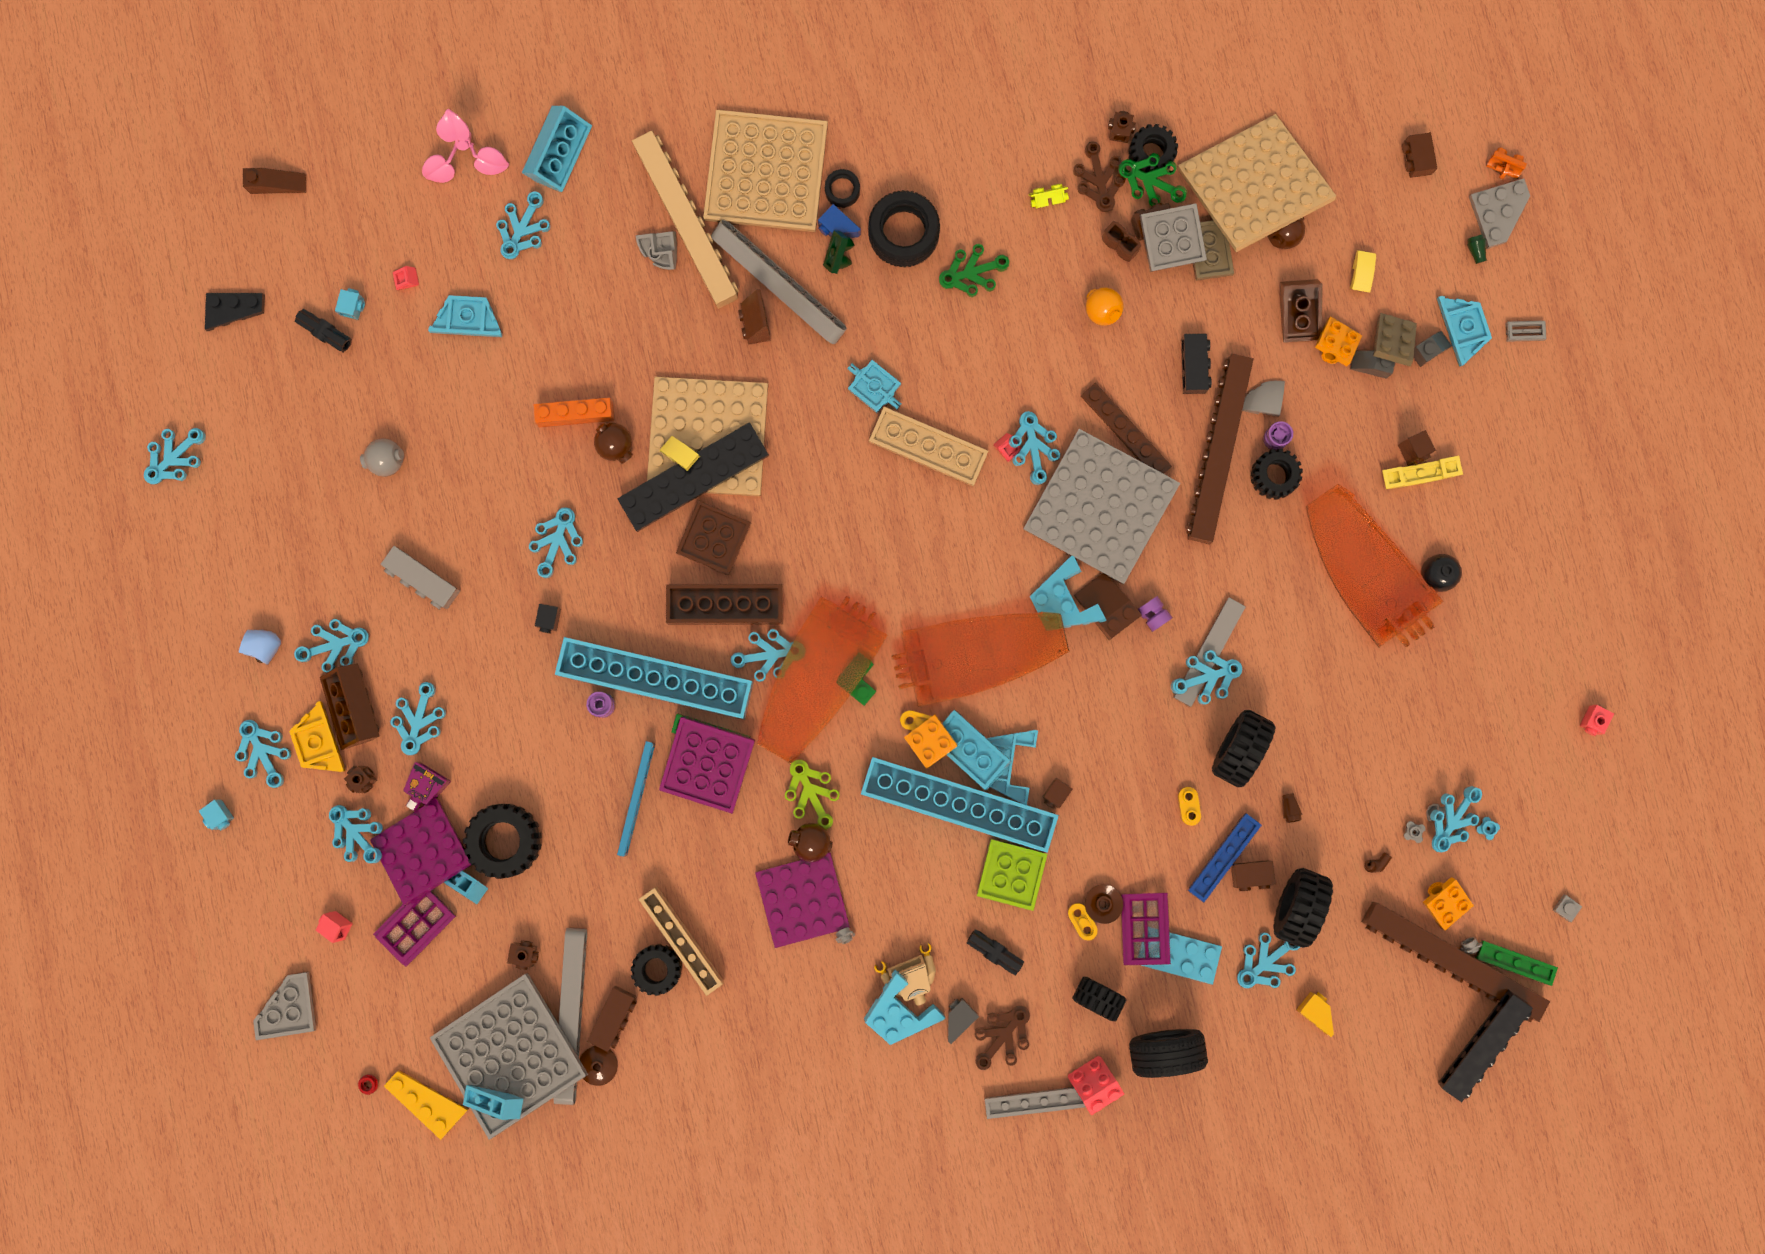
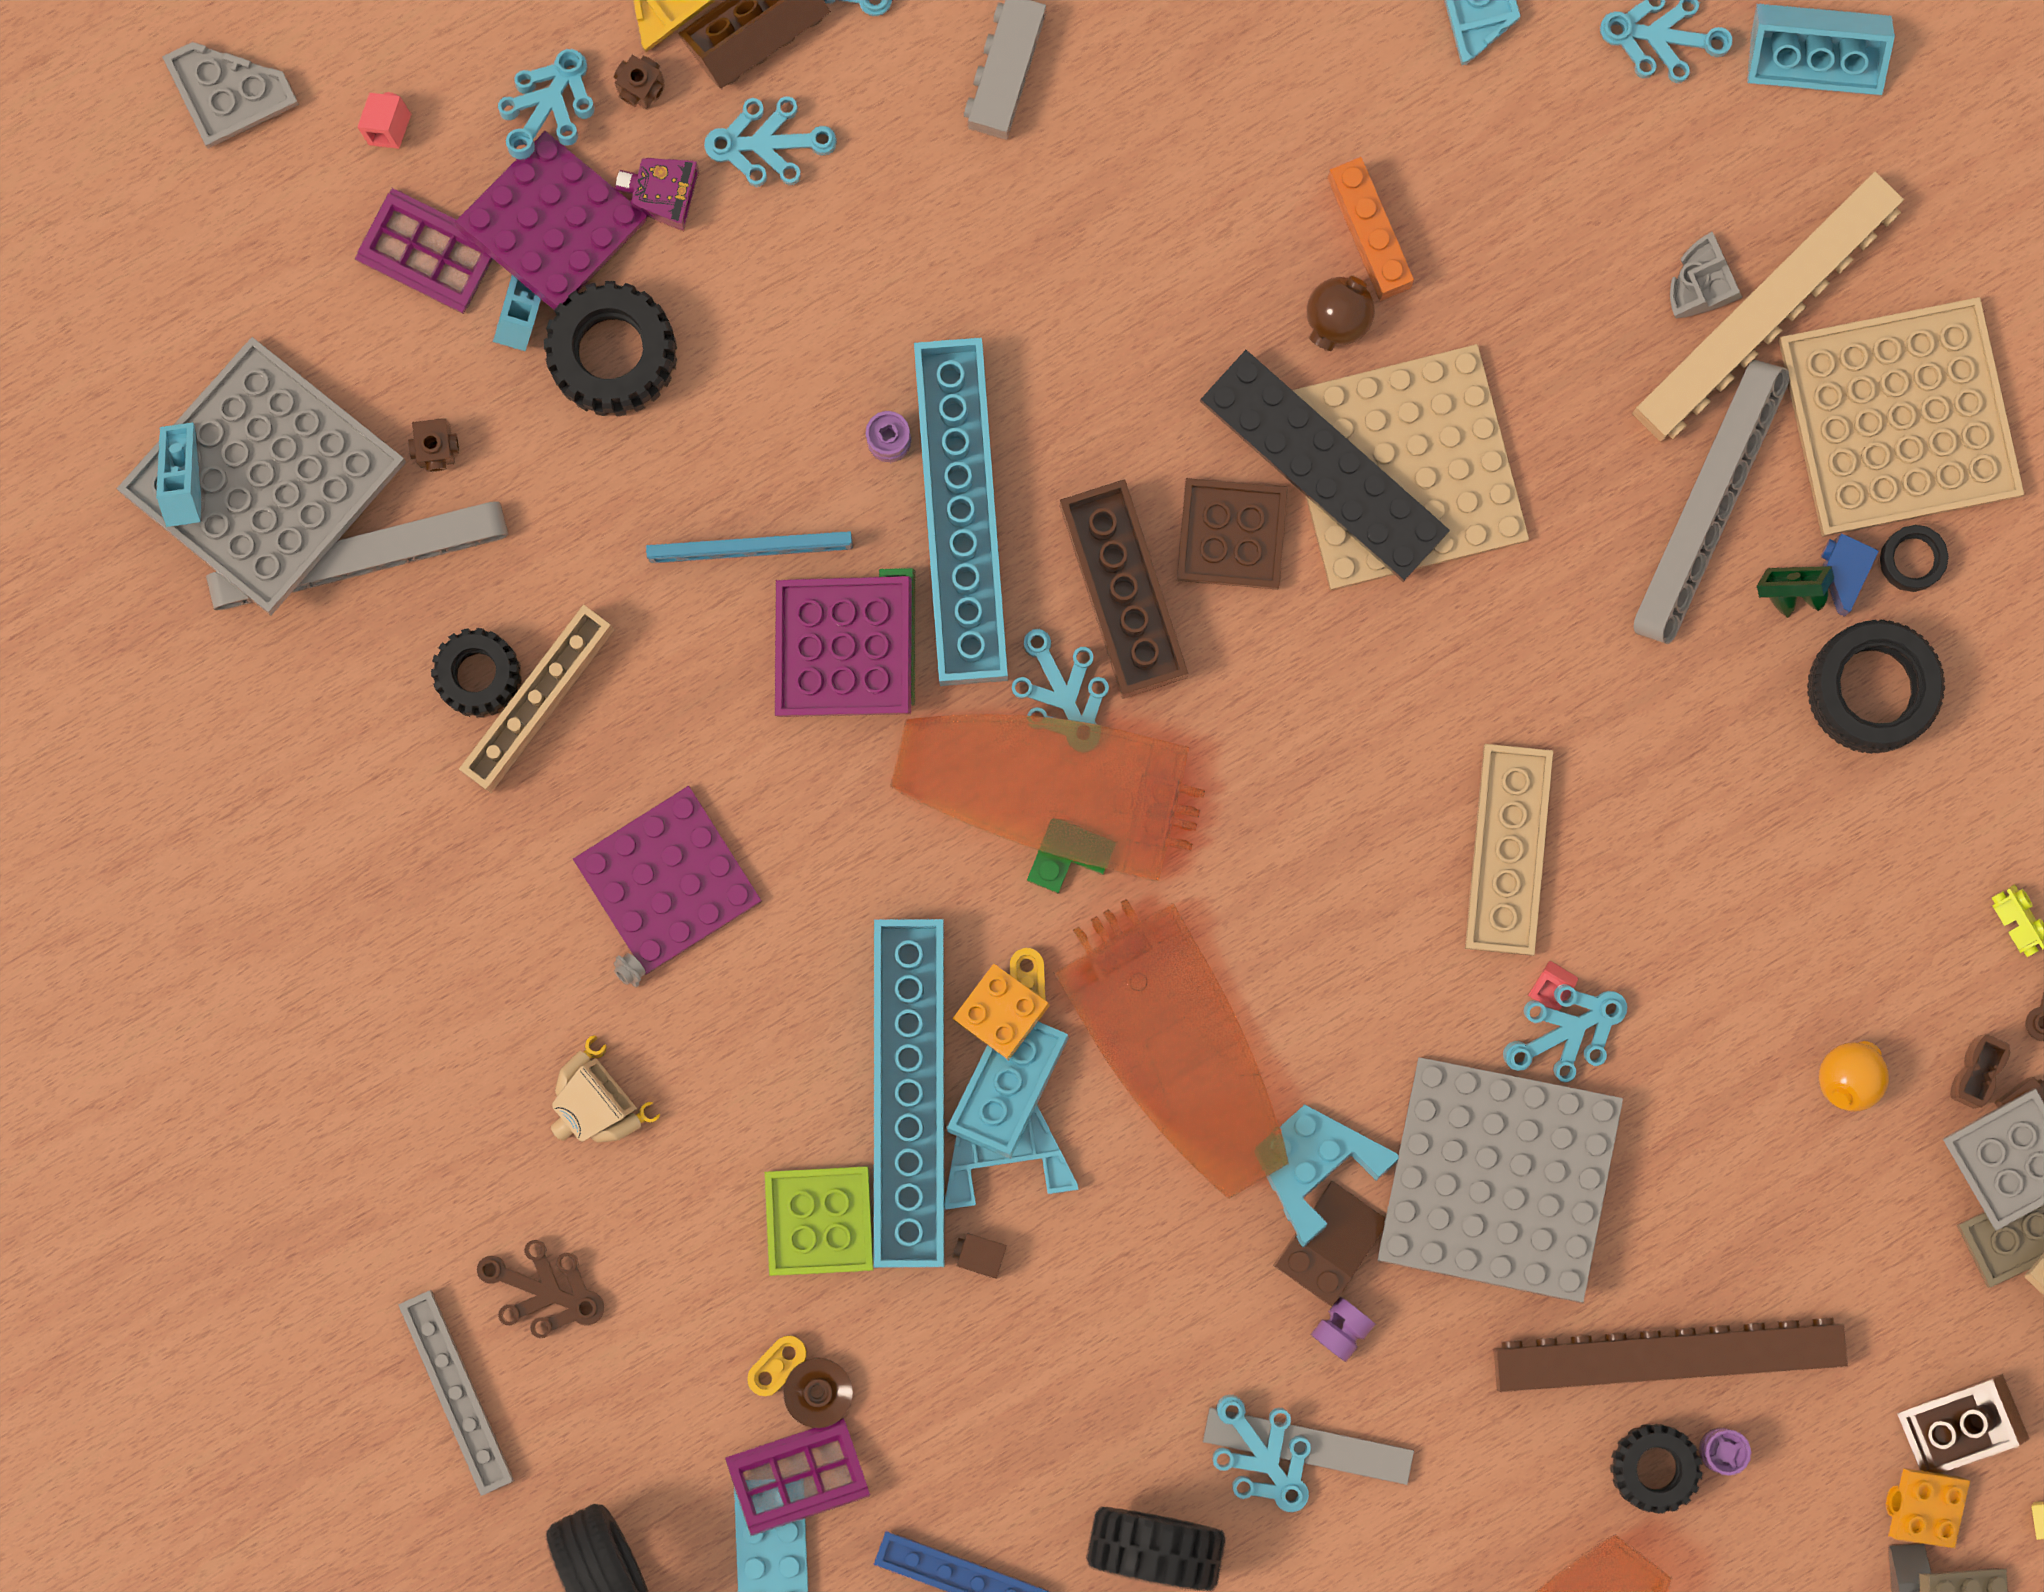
camera: 75 degrees right, 0 degrees up
(362, 1084) = (145, 252): red plate -> none
(429, 1106) = (140, 373): yellow wing -> none
(547, 618) = (1005, 300): black brick -> none
(556, 539) = (1144, 272): medium azure plant -> none
(607, 1062) = (298, 643): reddish brown dish -> none
(612, 1019) = (373, 627): reddish brown brick -> none
(679, 453) = (1356, 429): light yellow slope -> none
(754, 319) = (1631, 482): reddish brown slope -> none
(810, 790) = (853, 835): lime plant -> none
(810, 842) = (767, 861): reddish brown brick -> none
(874, 386) = (1583, 723): medium azure plate -> none
(893, 1019) = (516, 1094): medium azure wing -> none
(959, 1018) = (550, 1206): dark grey slope -> none
(971, 272) = (1840, 827): green plant -> none
(995, 952) = (679, 1232): black piece -> none
(1095, 1085) = (509, 1471): coral bracket -> none
(1099, 999) = (655, 1431): black tyre -> none
(1124, 429) = (1649, 1182): reddish brown plate -> none
(1189, 806) = (1029, 1488): yellow plate -> none
(1195, 363) = (1806, 1269): black brick -> none
(1265, 399) = (1785, 1410): light grey brick -> none

